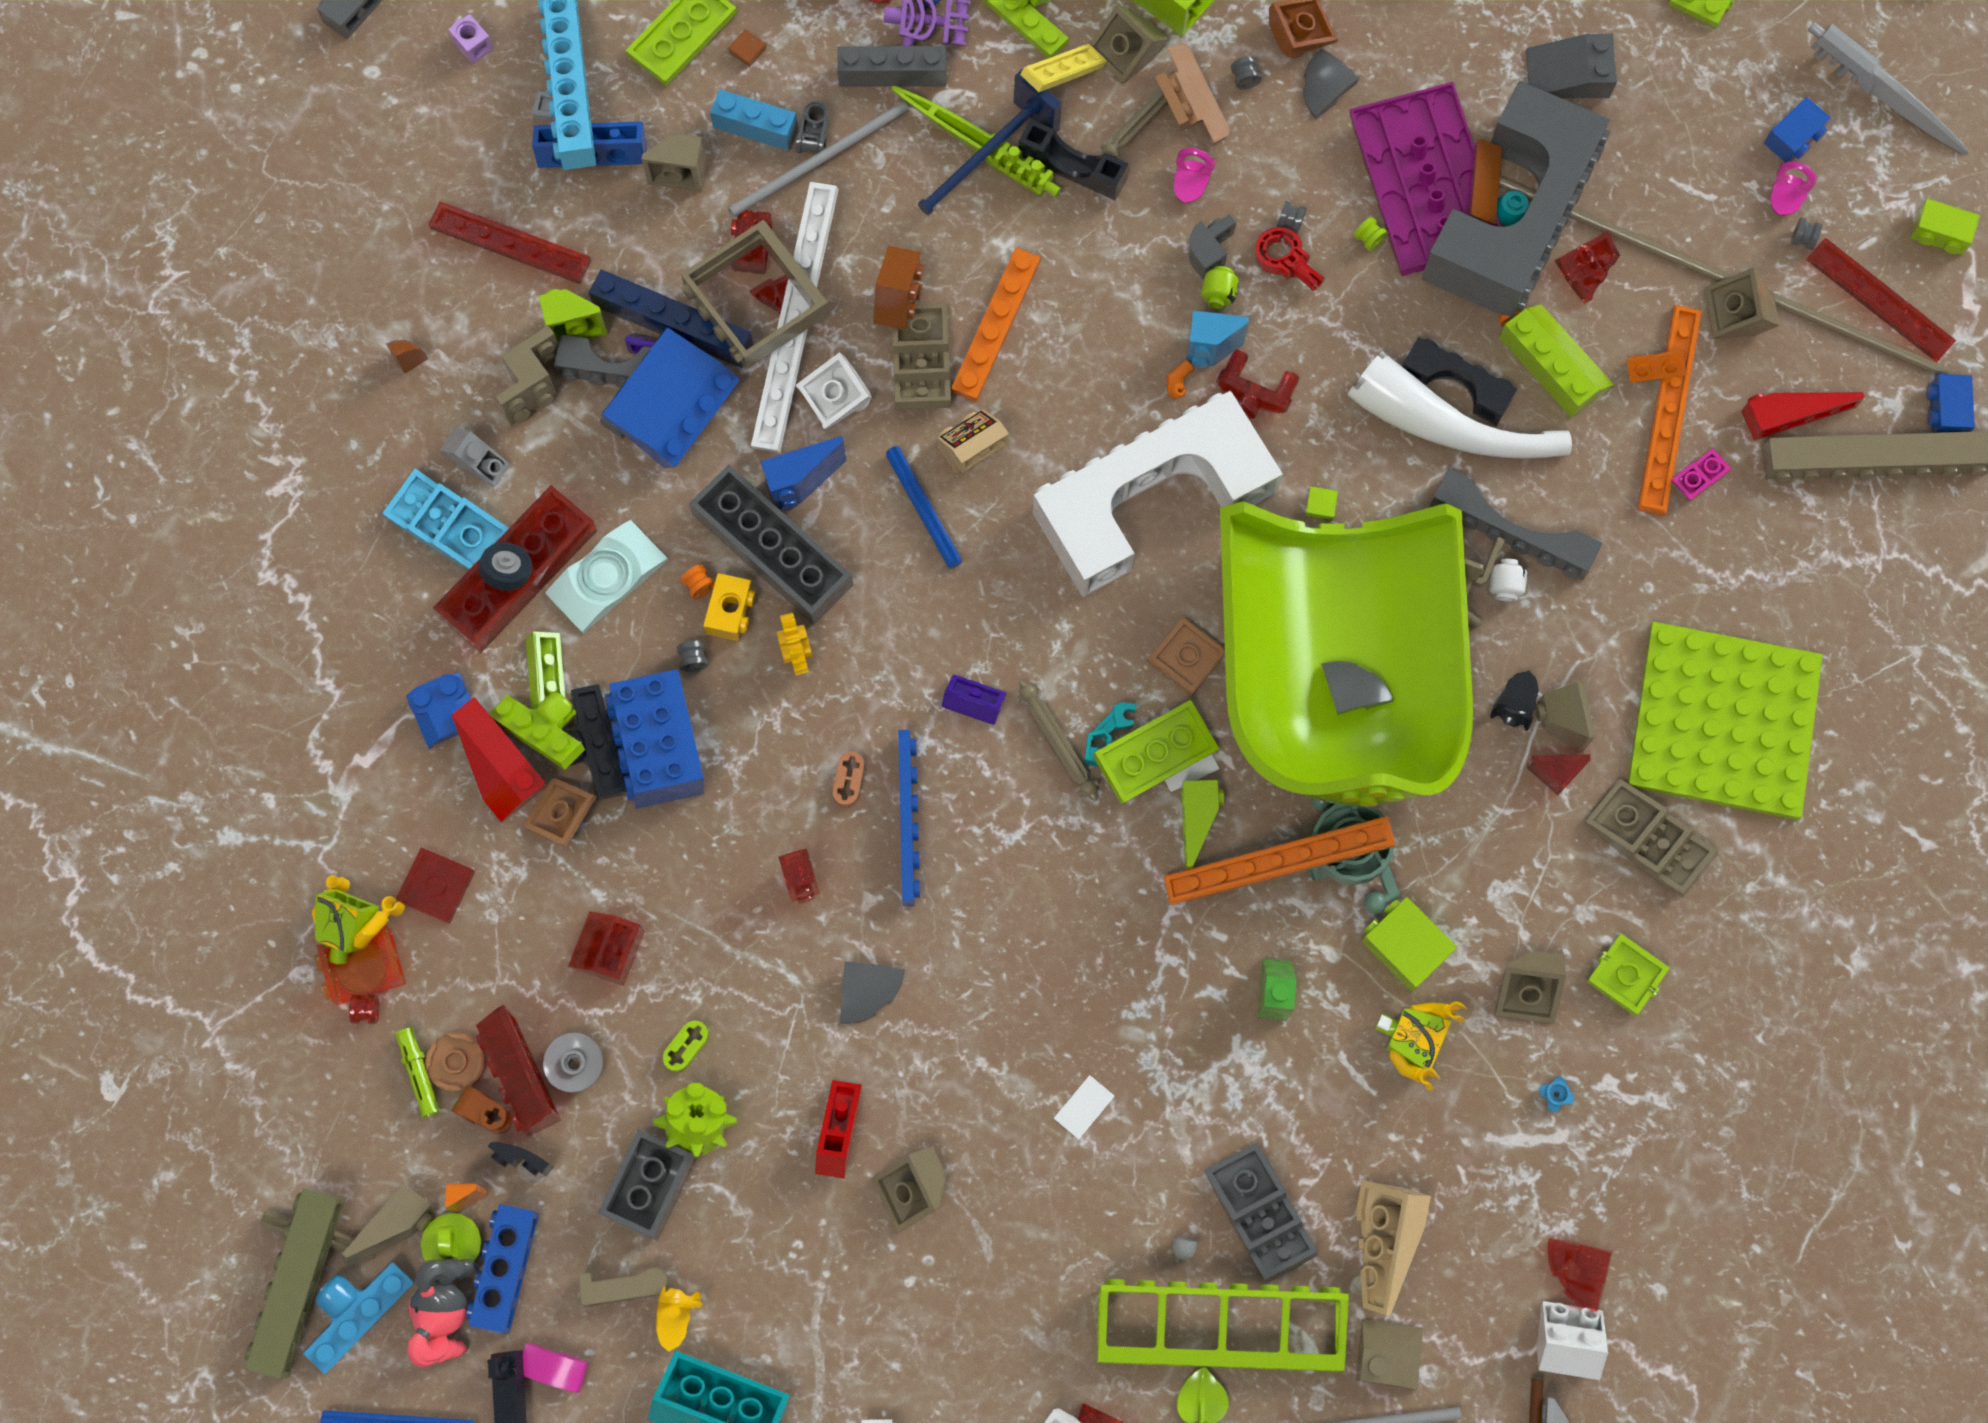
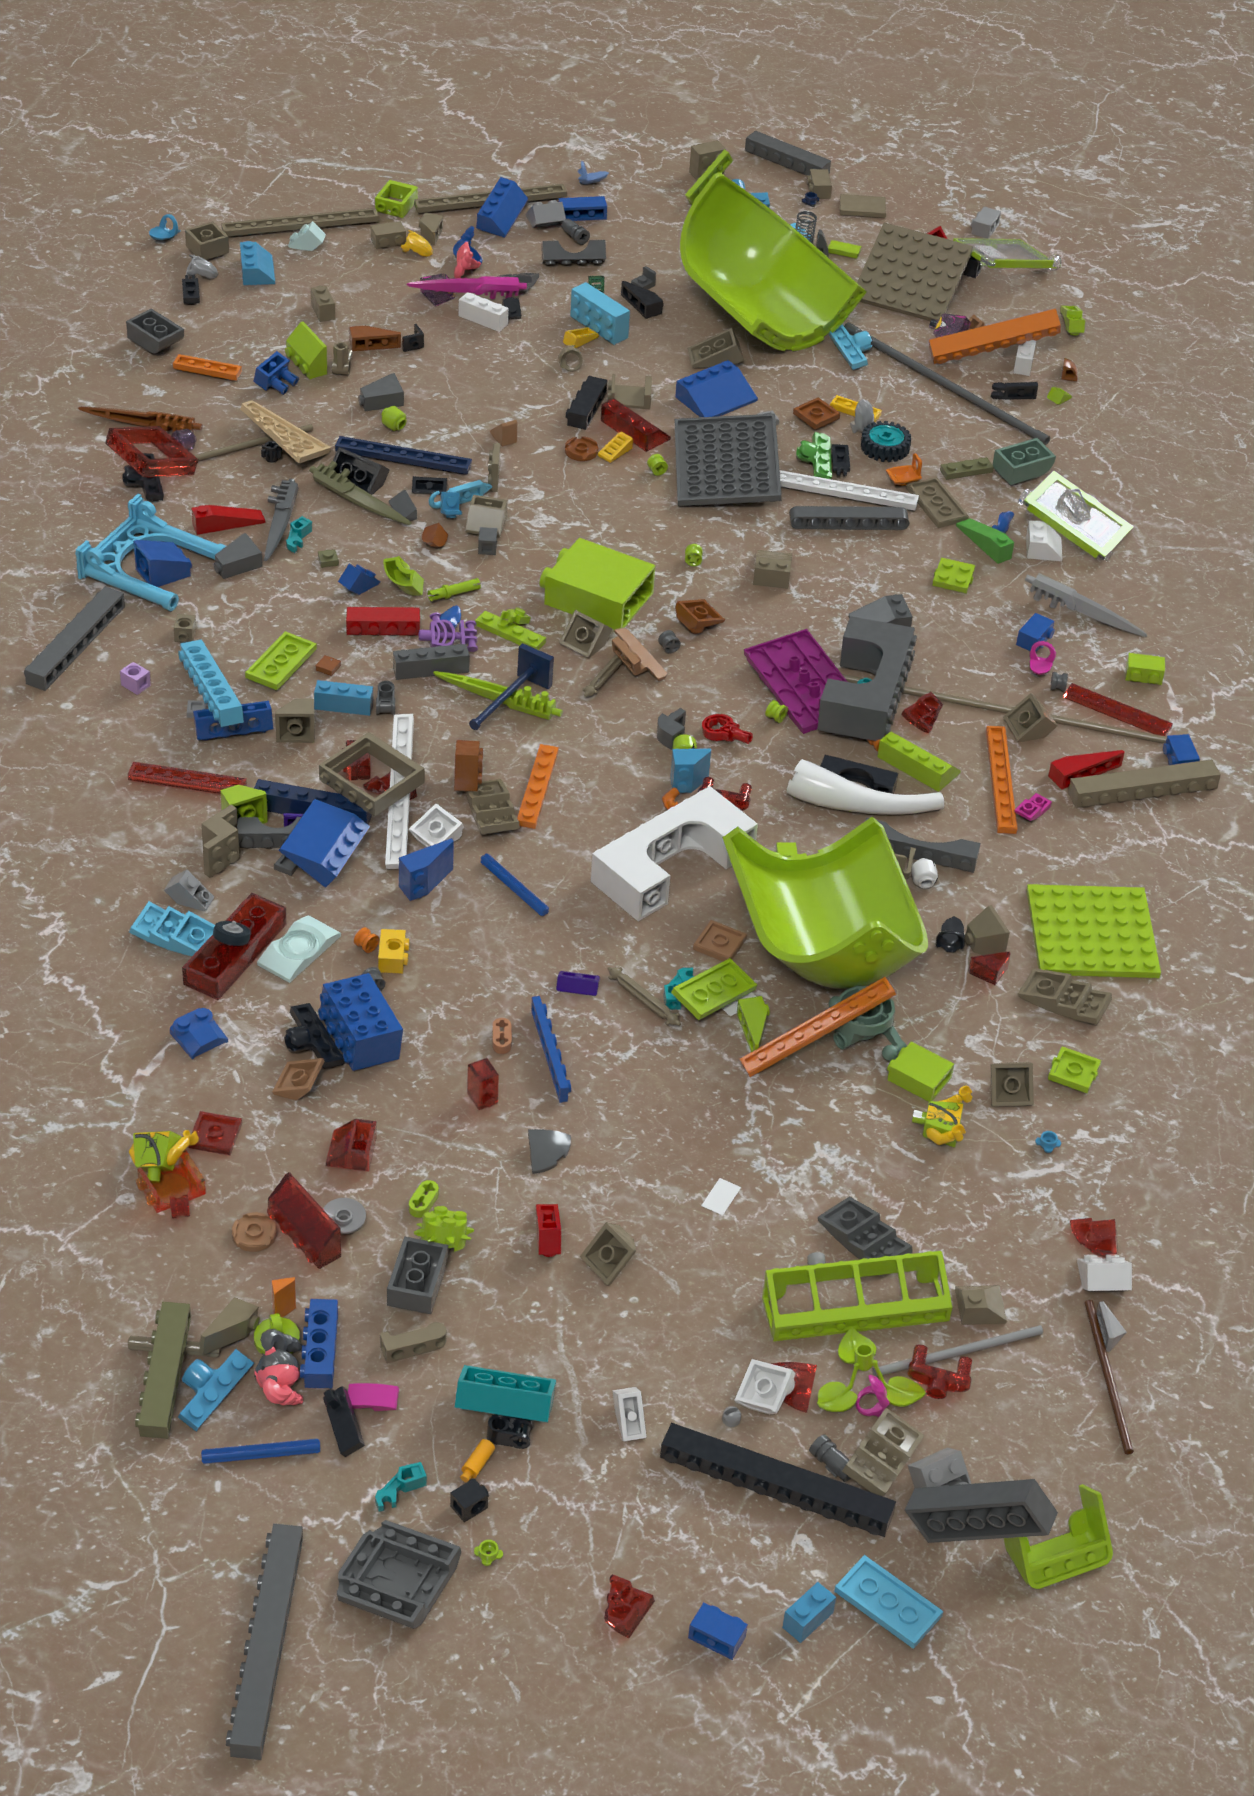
camera: 15 degrees left, 30 degrees down
(406, 354) = (127, 843): dark orange brick -> none
(417, 1072) = (216, 1223): lime pin -> none
(479, 1109) = (281, 1252): dark orange piece -> none
(498, 766) = (250, 1055): red wedge -> none
(513, 1155) = (311, 1274): black slope -> none
(541, 727) = (278, 1025): lime plate -> none
(544, 666) = (267, 1006): lime slope -> none
(674, 1315) = (454, 1351): yellow piece -> none
(771, 544) = (415, 911): dark grey brick -> none
(794, 644) = (445, 959): yellow gear -> none
(817, 159) = (395, 710): light grey piece -> none
(972, 440) = (540, 842): tan piece -> none
(1063, 67) = (548, 645): light yellow tile -> none
(1098, 173) = (588, 700): black arch -> none
(1192, 175) = (649, 699): dark pink piece -> none
(1276, 990) = (838, 1104): bright green slope -> none
(1291, 217) = (721, 707): dark grey wheel -> none
(1326, 82) = (723, 641): dark grey brick -> none
(1354, 687) = (832, 935): dark grey brick -> none
(1390, 1232) = (958, 1230): tan wedge -> none
(1485, 181) = (841, 667): dark orange slope -> none
(1656, 366) = (985, 754): orange hinge -> none

